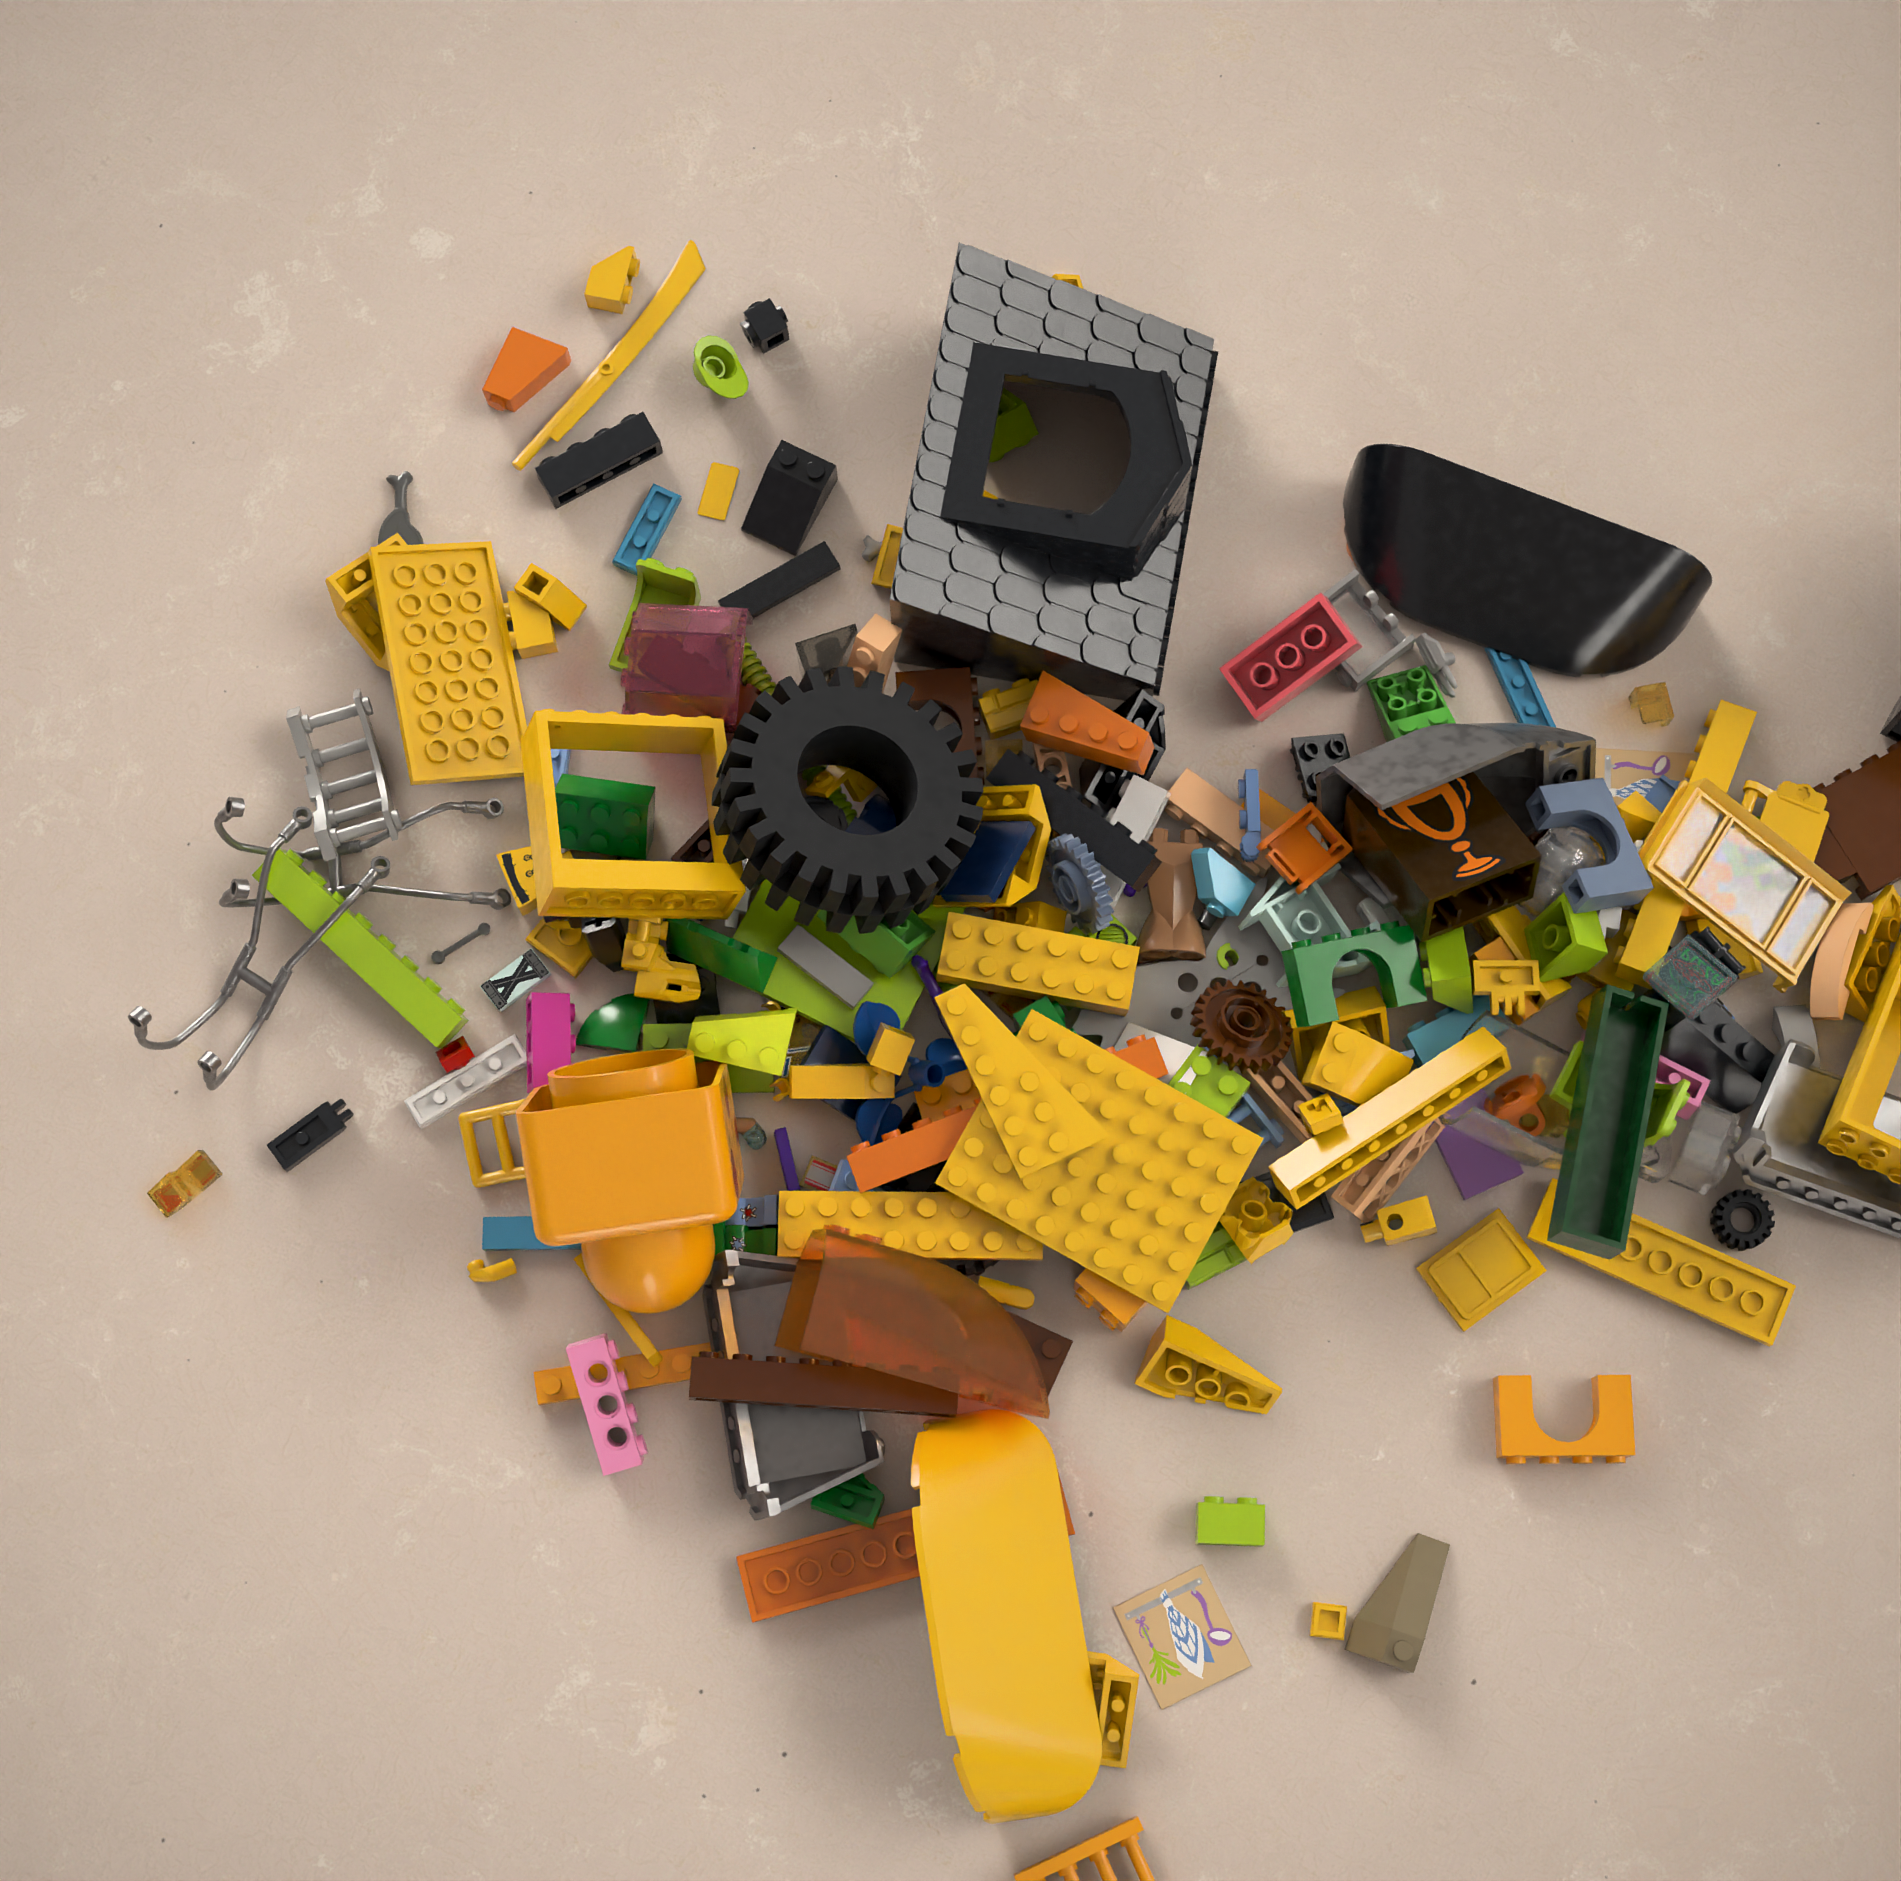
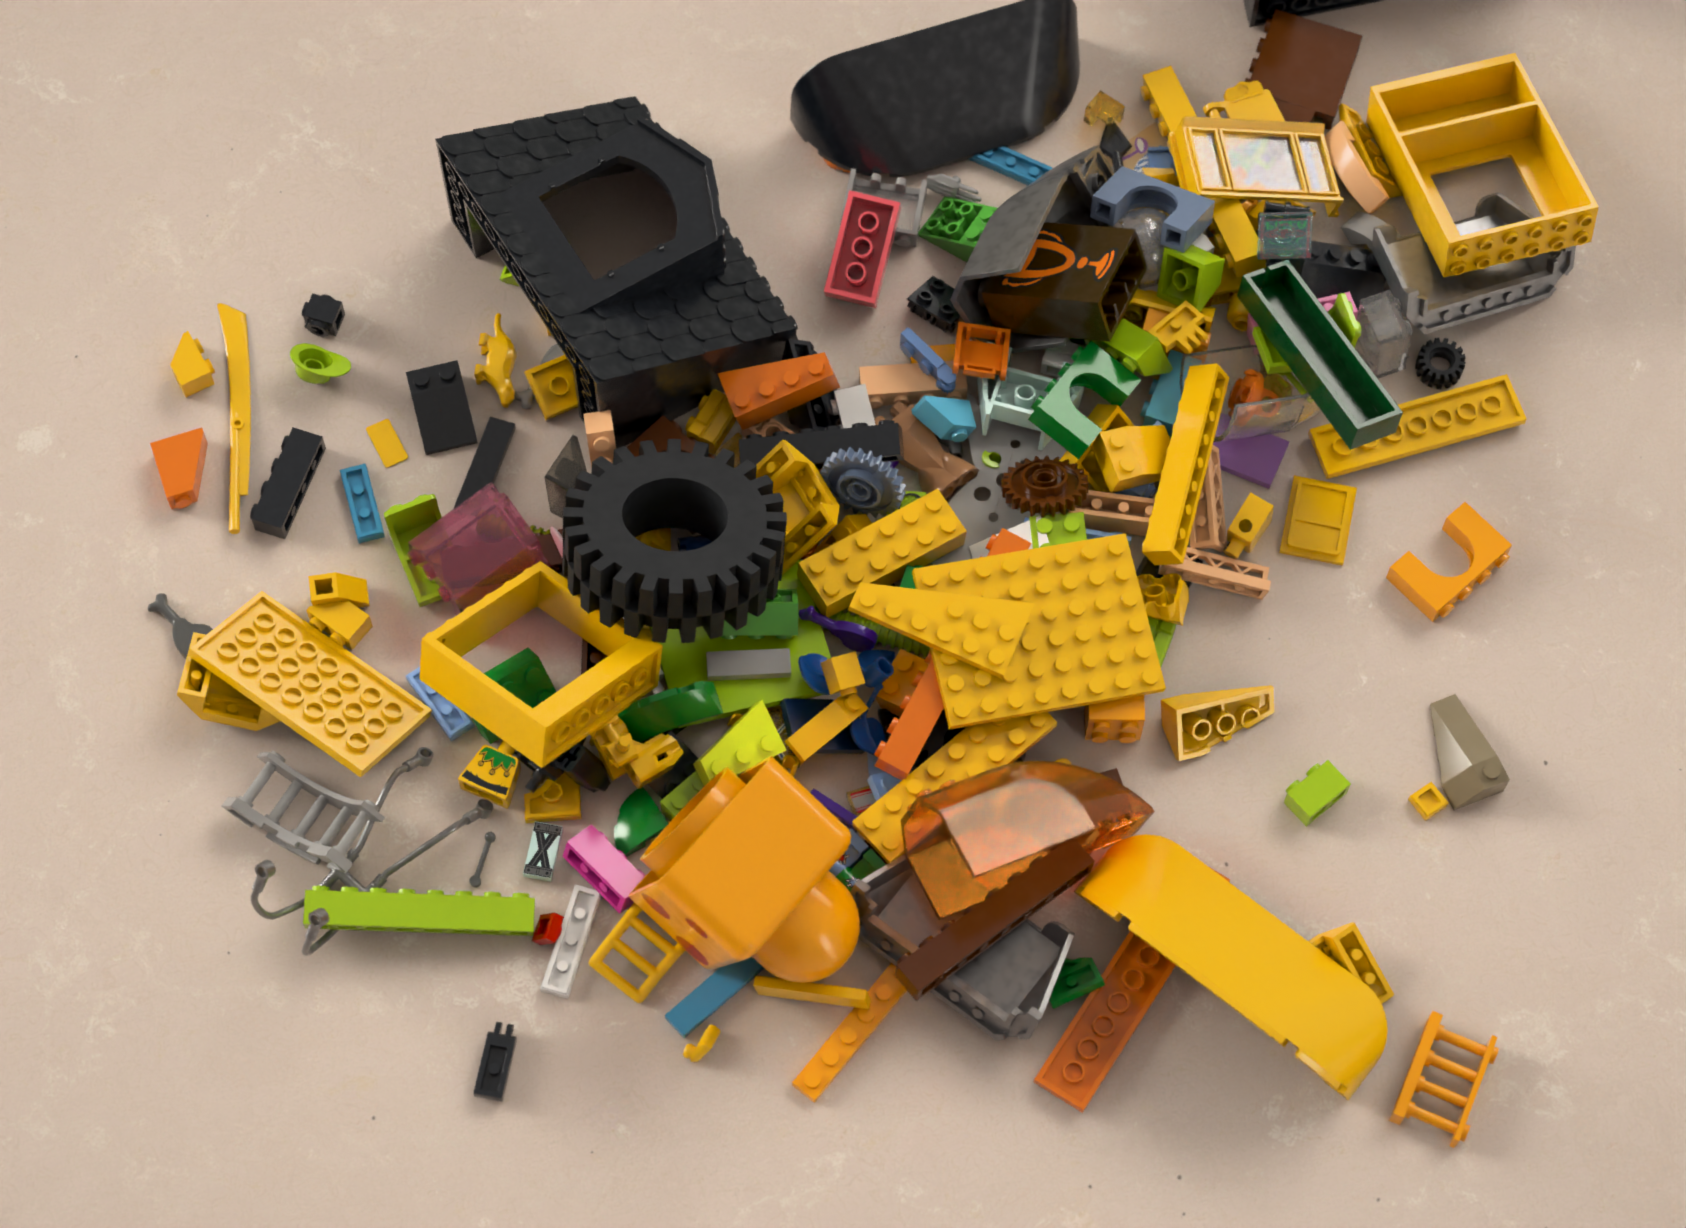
camera: 45 degrees left, 10 degrees down
(184, 1184) = (437, 1169): clear yellow slope -> none
(209, 1061) = (400, 1046): flat silver bar -> none
(611, 1454) = (820, 1038): bright pink brick -> none
(876, 496) = (499, 363): none -> yellow animal
(989, 861) = (802, 509): dark blue tile -> none
(1182, 1636) = (1351, 887): tan sticker -> none
(1320, 1114) = (1143, 496): yellow bracket -> none
(1331, 1249) = (1219, 578): none -> light nougat fence
(1632, 746) = (1114, 145): none -> black piece

